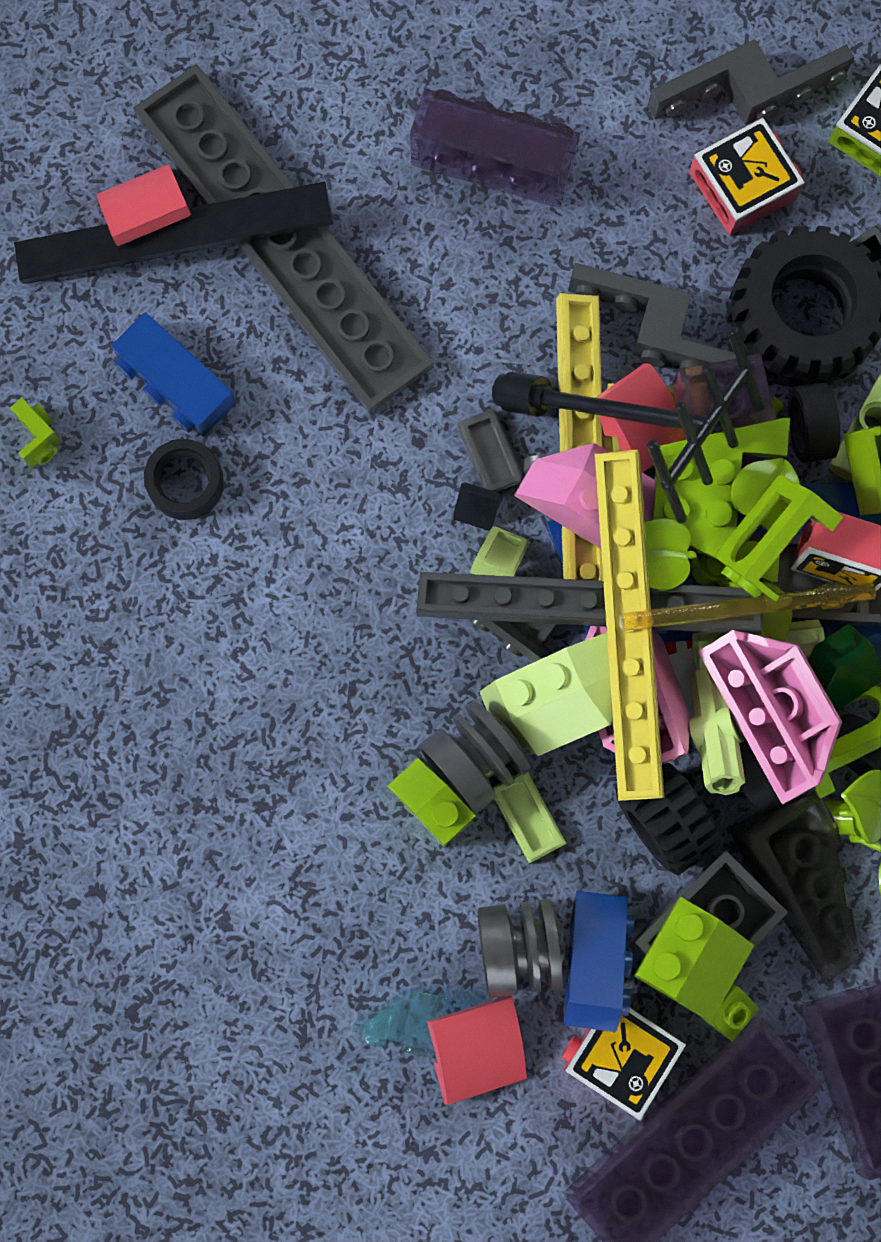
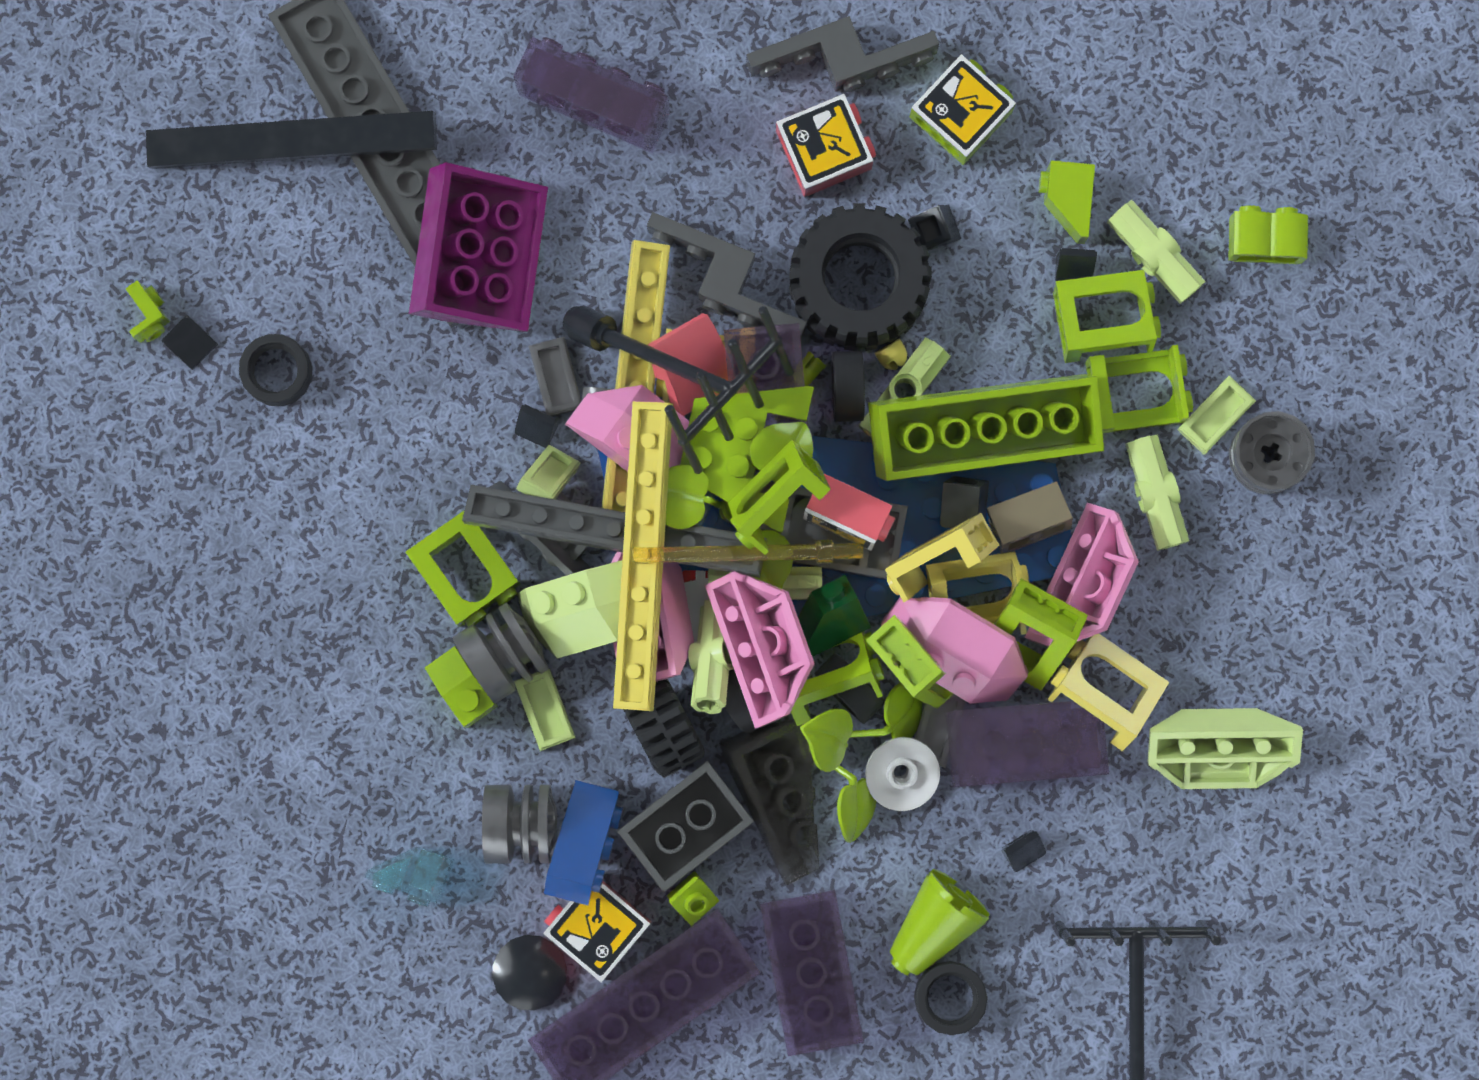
camera: 10 degrees right, 5 degrees up
(85, 460) = (189, 342): none -> black slope
(143, 205) = (266, 109): coral slope -> none
(172, 375) = (275, 273): blue brick -> none
(391, 321) = (478, 248): none -> magenta slope
(421, 715) = (459, 609): none -> lime panel
(478, 1049) = (472, 906): coral slope -> none
(551, 1118) = (529, 972): none -> black dish
(694, 959) = (662, 852): lime slope -> none
(848, 386) = (892, 355): none -> light yellow hinge

